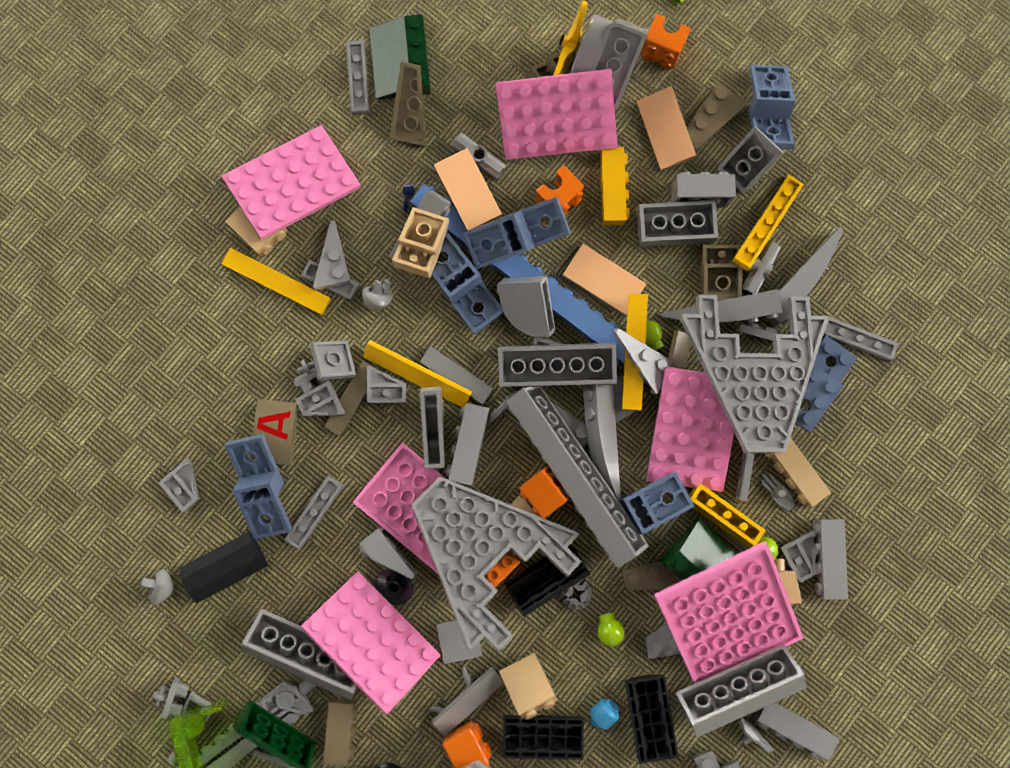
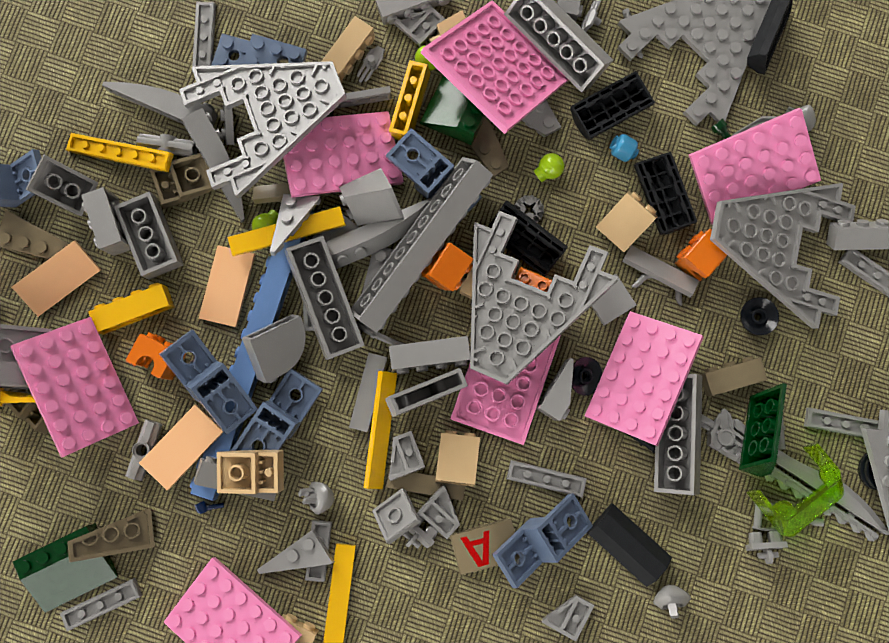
camera: 110 degrees left, 0 degrees up
(363, 435) = (457, 458): none -> tan brick
(638, 441) = (370, 199): none -> light grey slope

